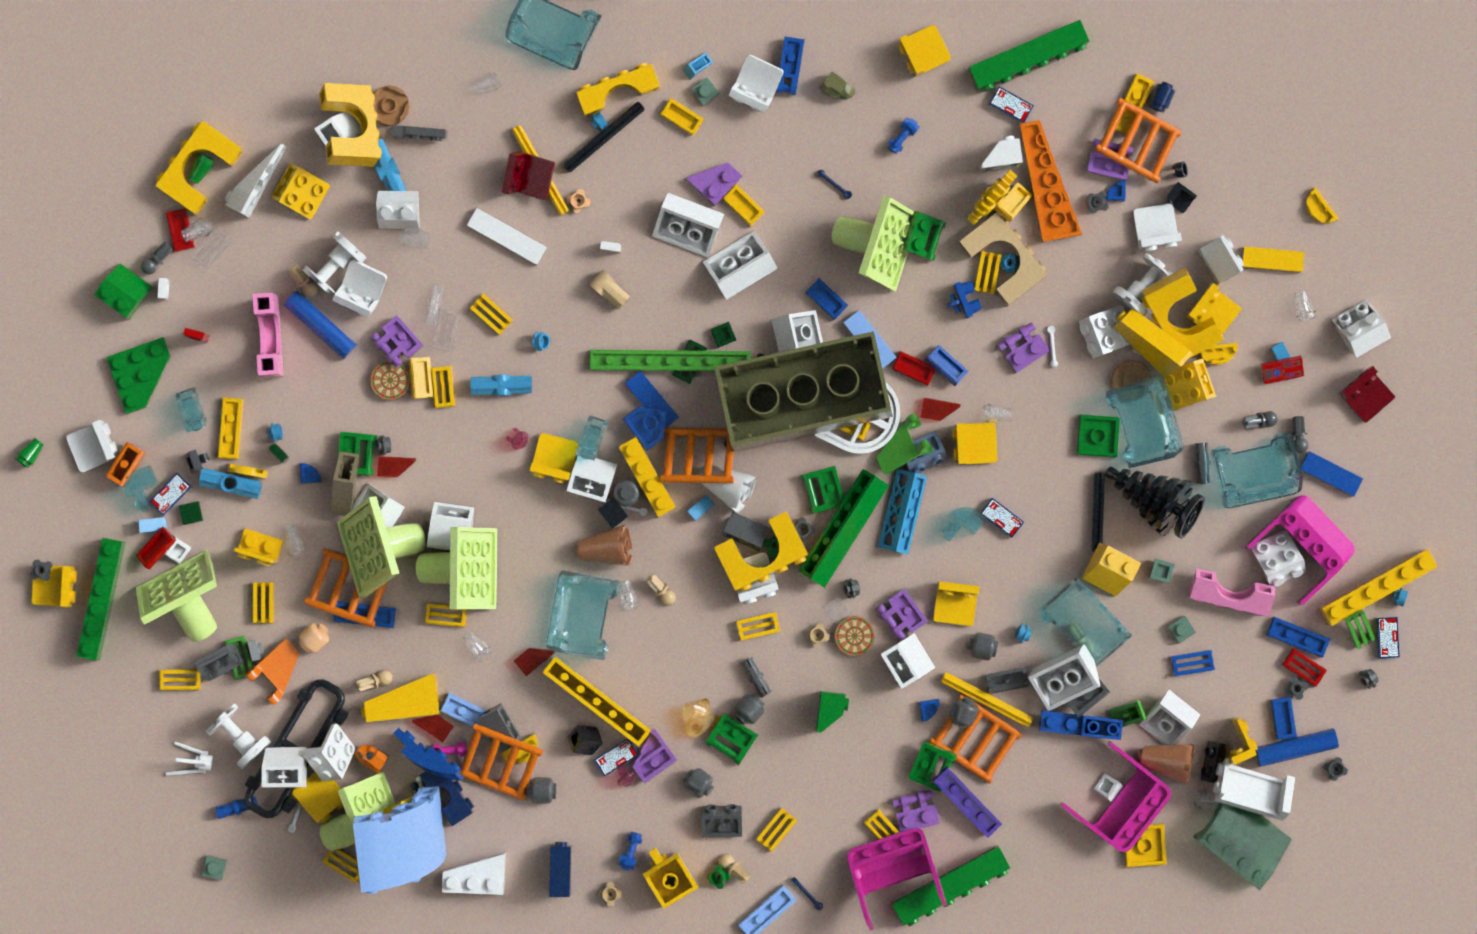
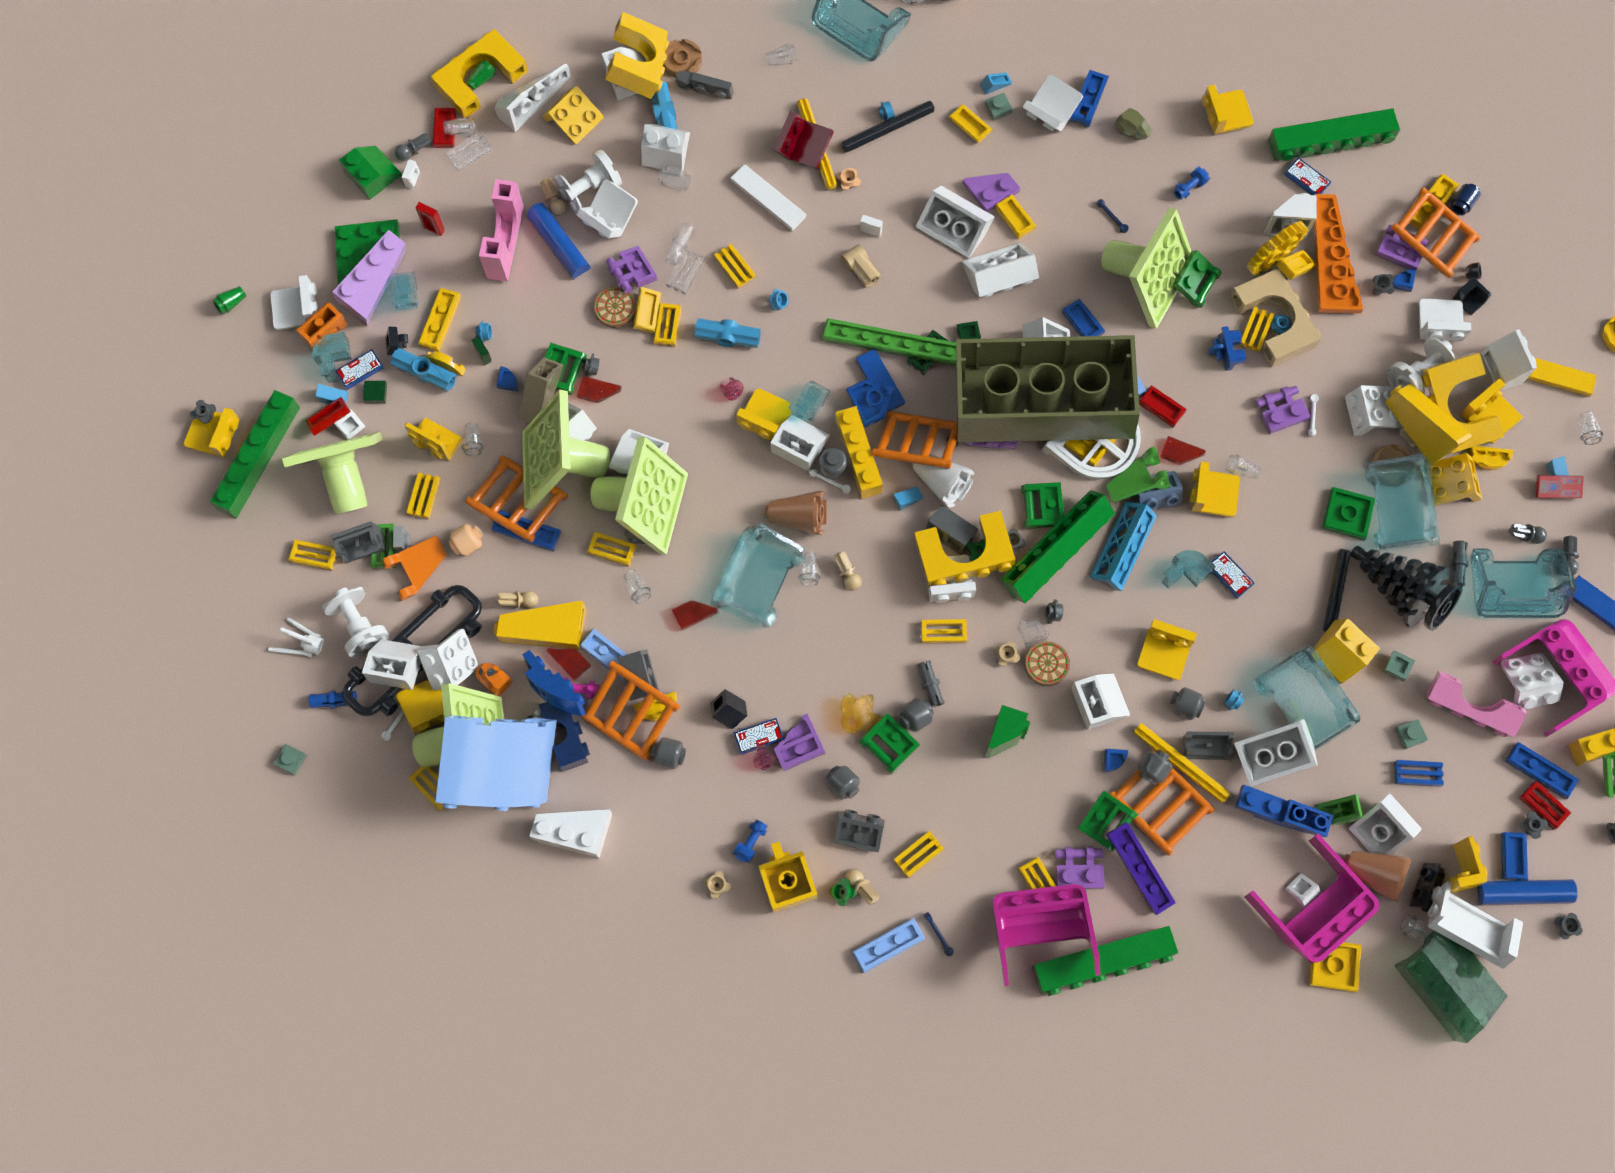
camera: 20 degrees right, 15 degrees down
(157, 407) = (370, 278): none -> lavender wedge
(560, 870) = (667, 844): dark blue slope -> none
(593, 97) = (935, 80): yellow arch -> none
(597, 701) = (752, 669): yellow brick -> none
(613, 513) = (814, 479): black panel -> none
(906, 610) = (1109, 647): medium lavender plate -> none
(946, 365) = (1197, 409): blue tile -> none
(1085, 702) = (1297, 782): dark grey bracket -> none

